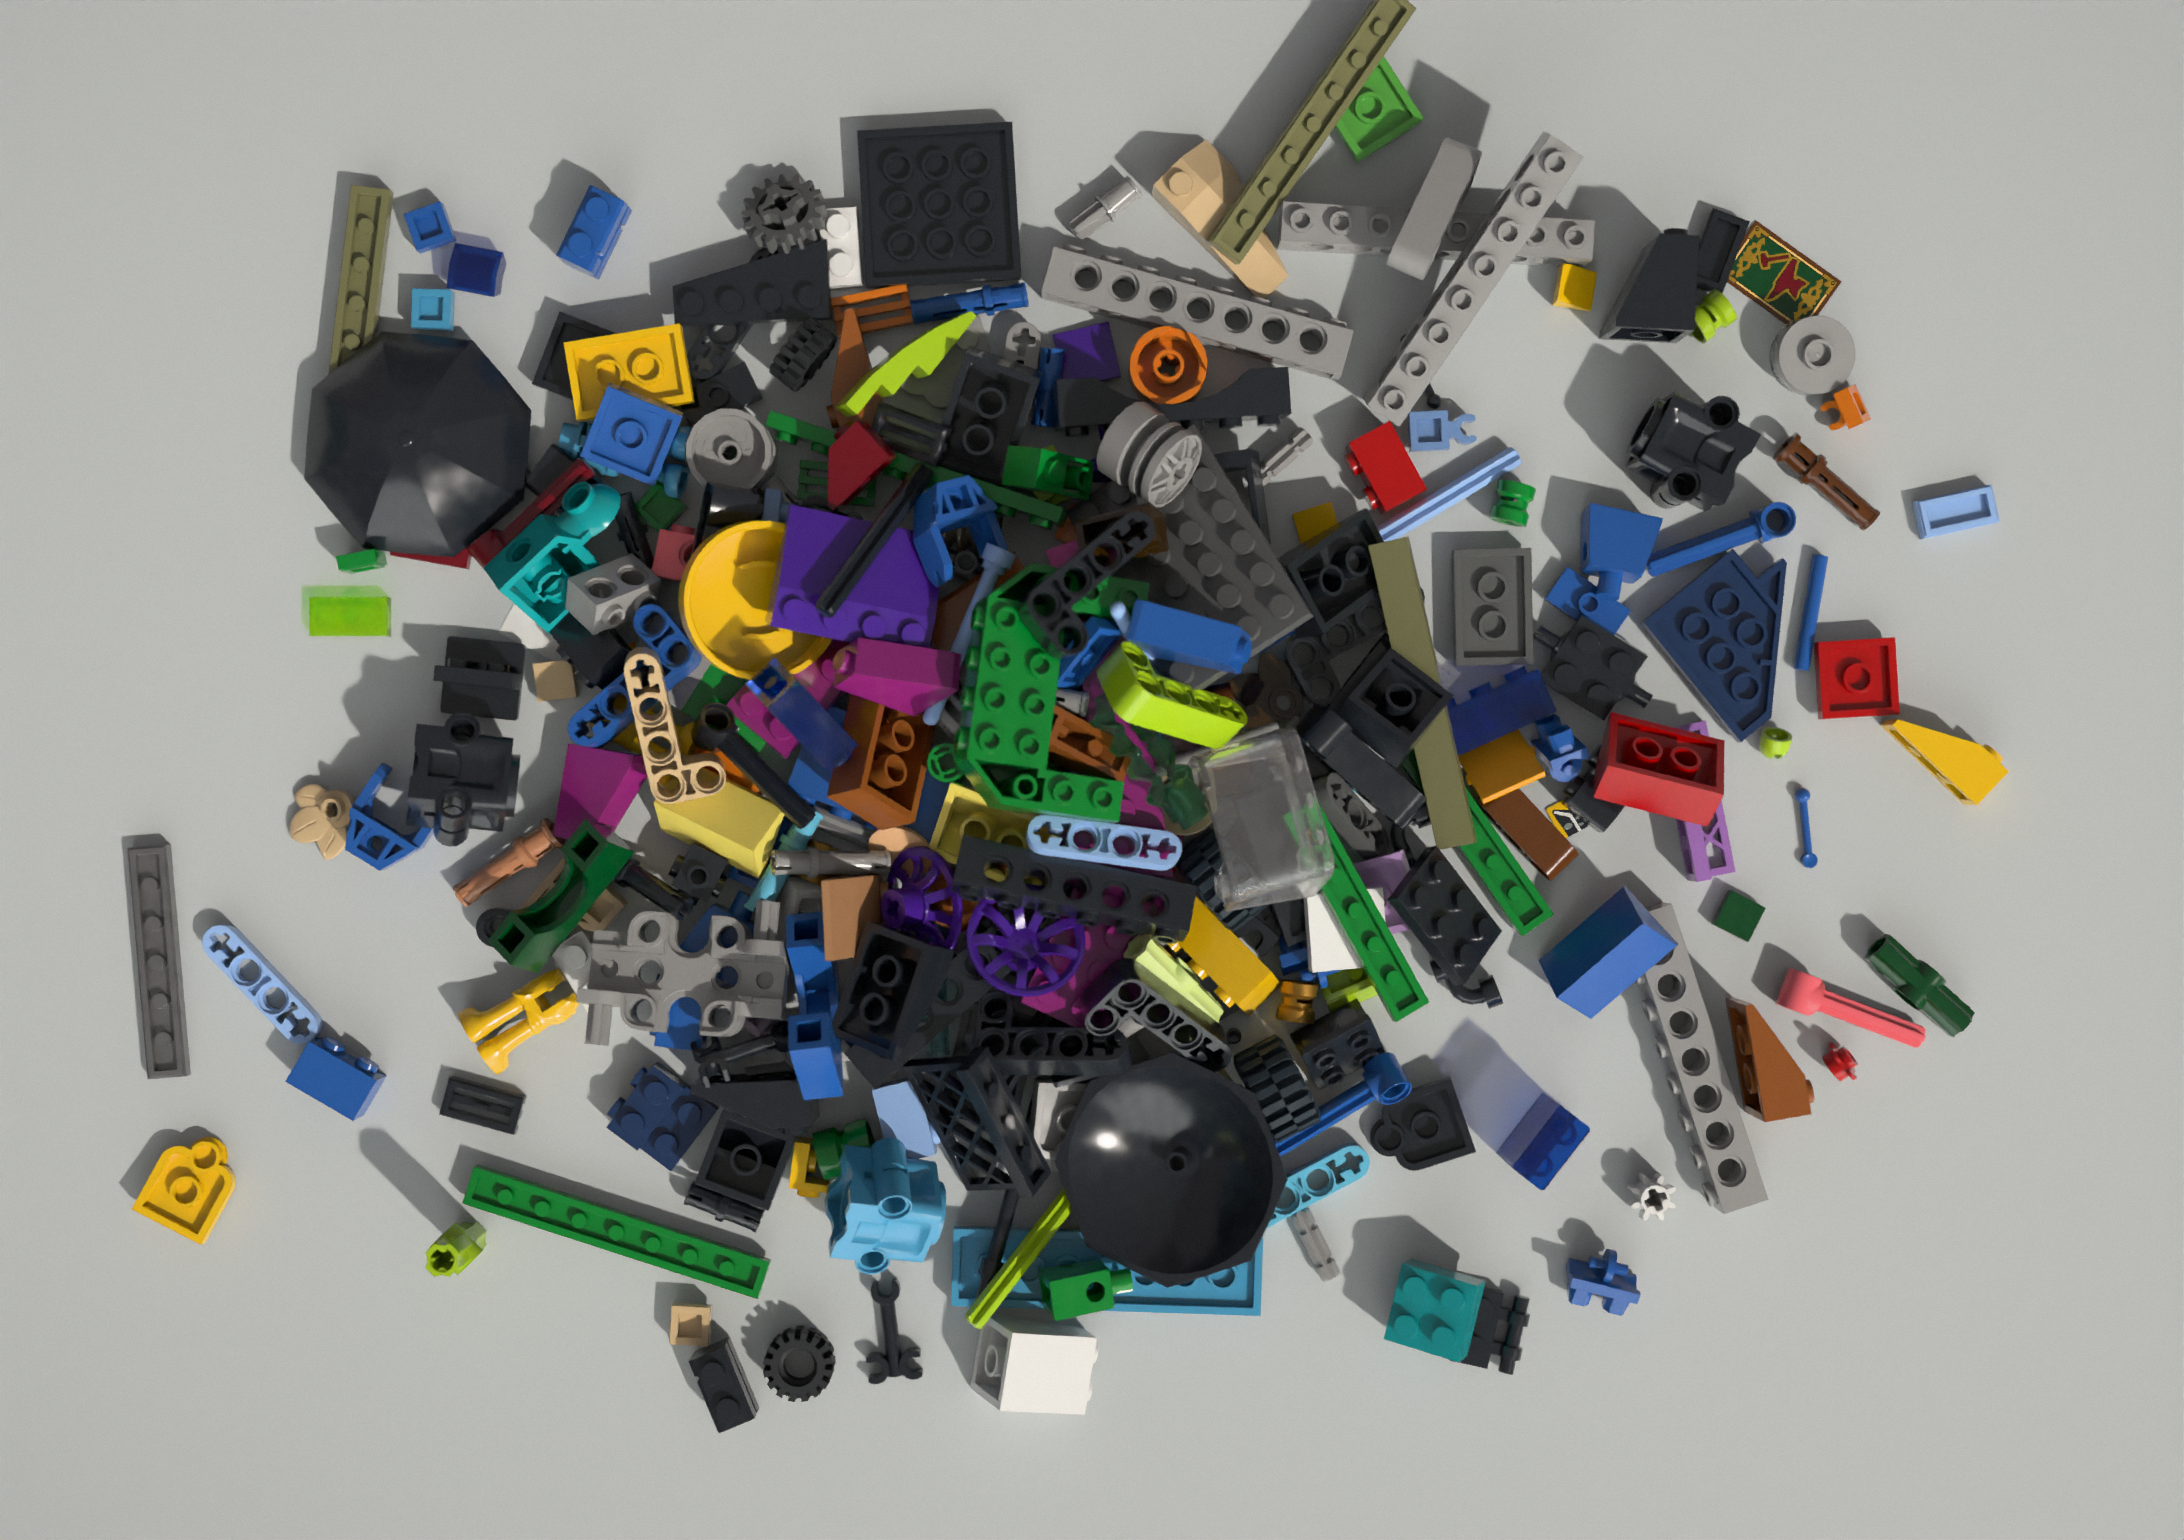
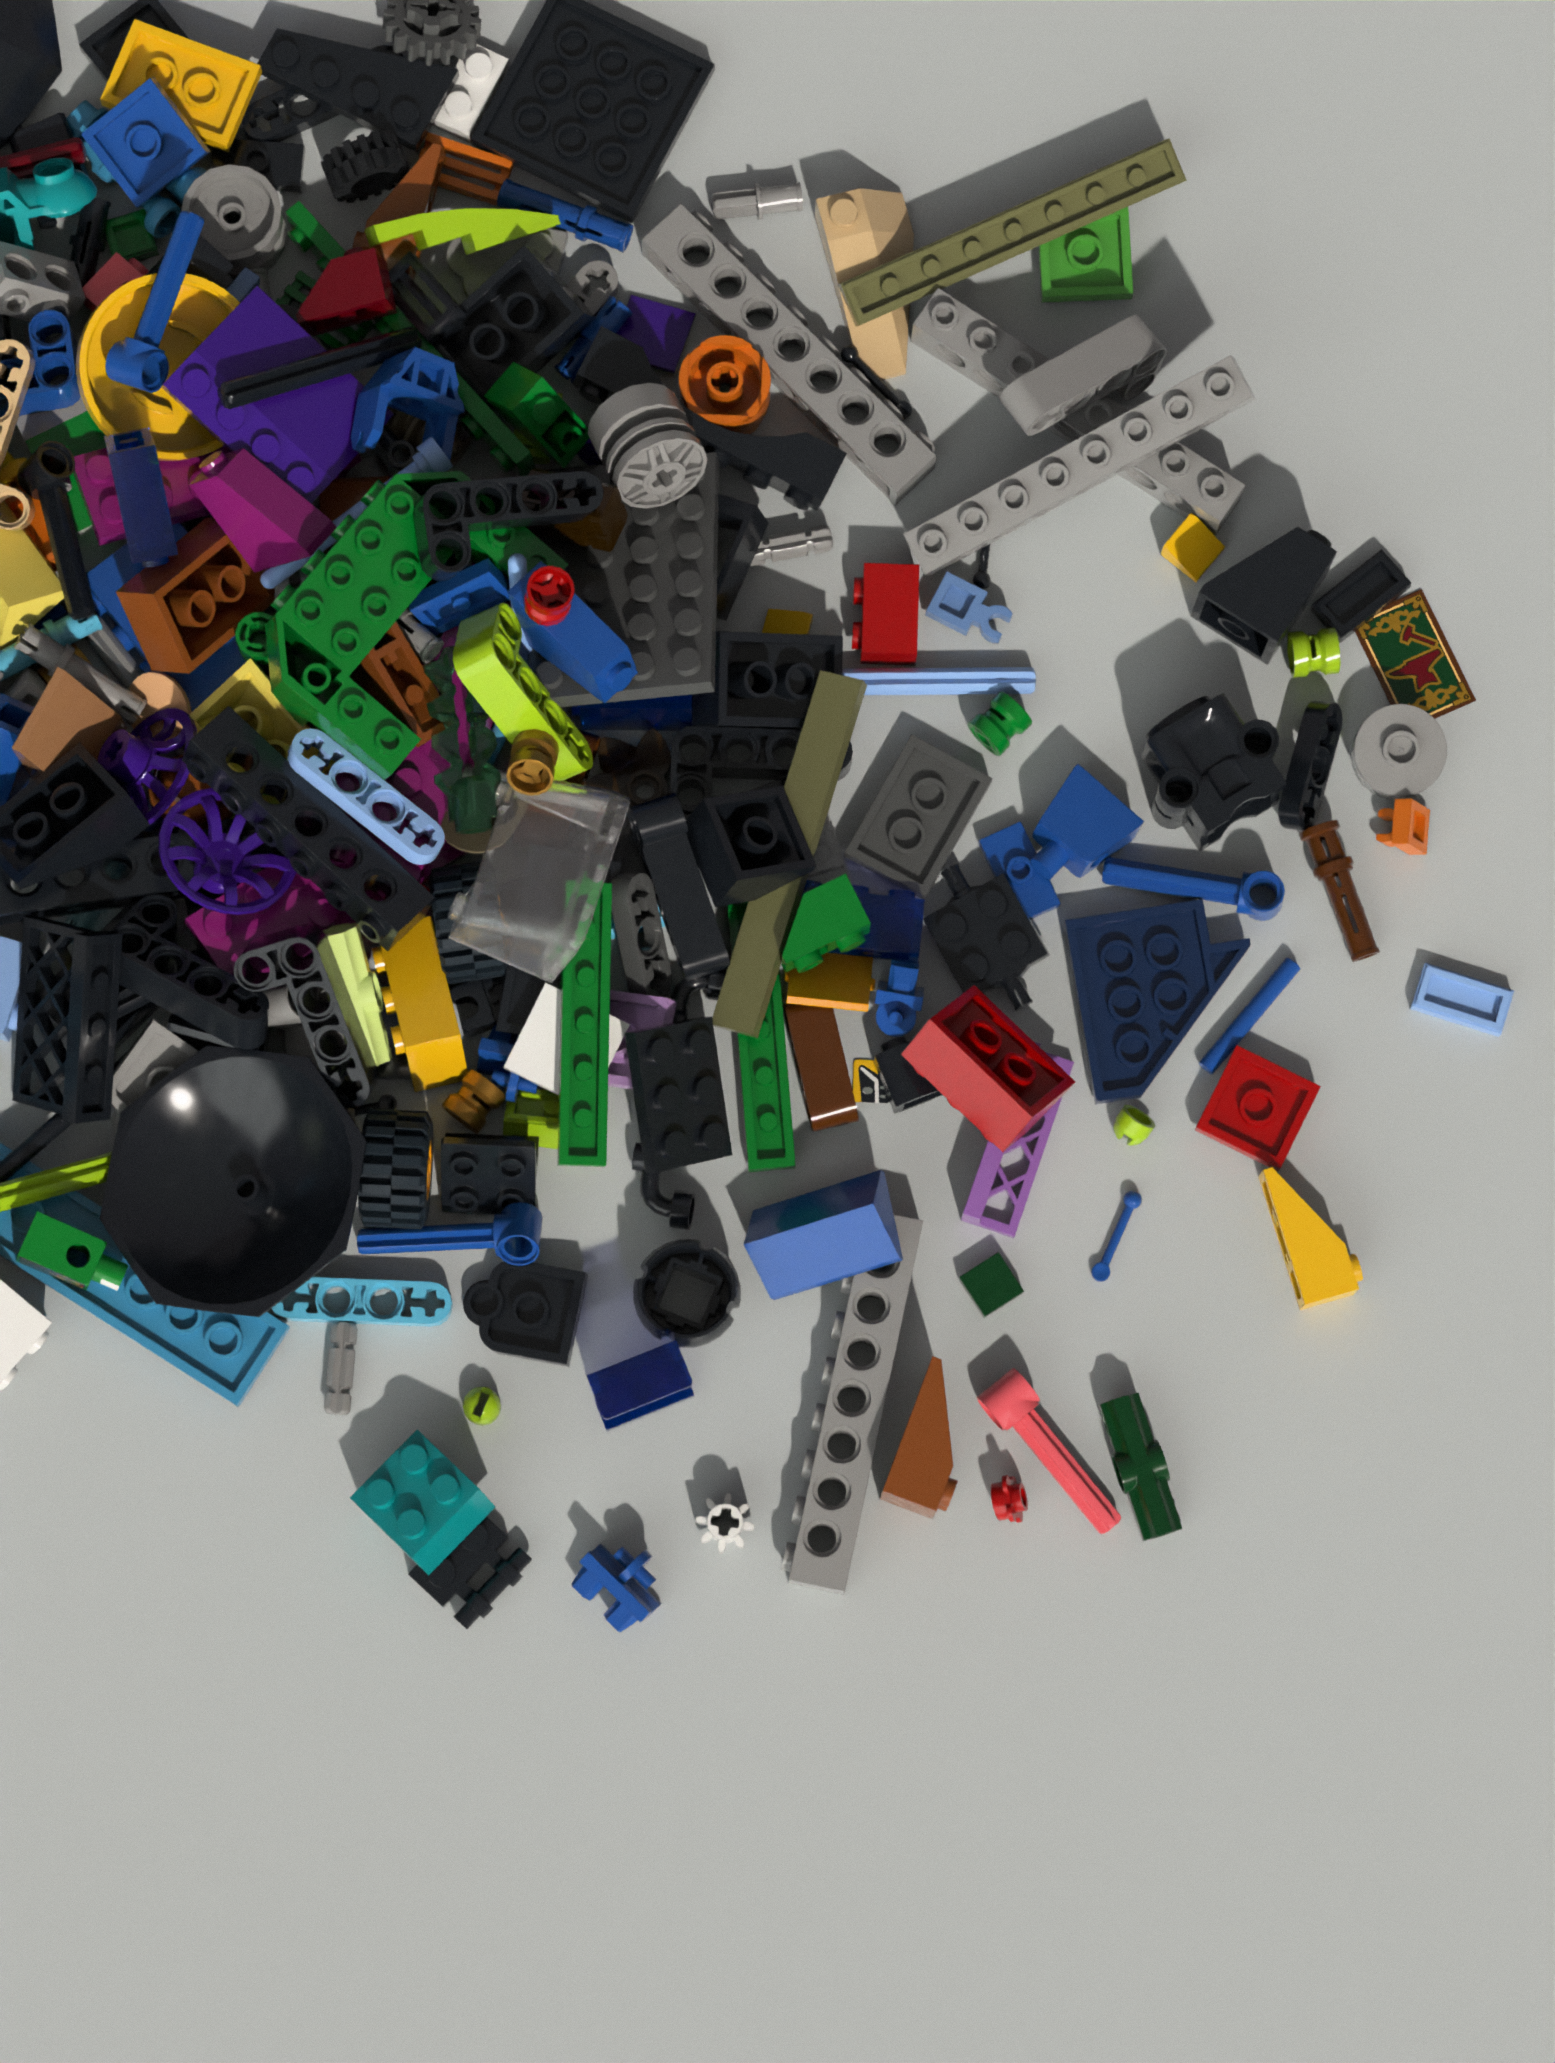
camera: 30 degrees right, 10 degrees down
(738, 613) = (138, 359): none -> blue axle
(1164, 619) = (550, 585): none -> red wheel
(1209, 743) = (532, 762): none -> pearl gold wheel
(1241, 287) = (850, 355): none -> black hinge
(1421, 1214) = (491, 1410): none -> lime hinge
(1479, 732) = (825, 921): none -> green slope
(1560, 1051) = (704, 1264): none -> black piece
(1754, 401) = (1310, 765): none -> black beam

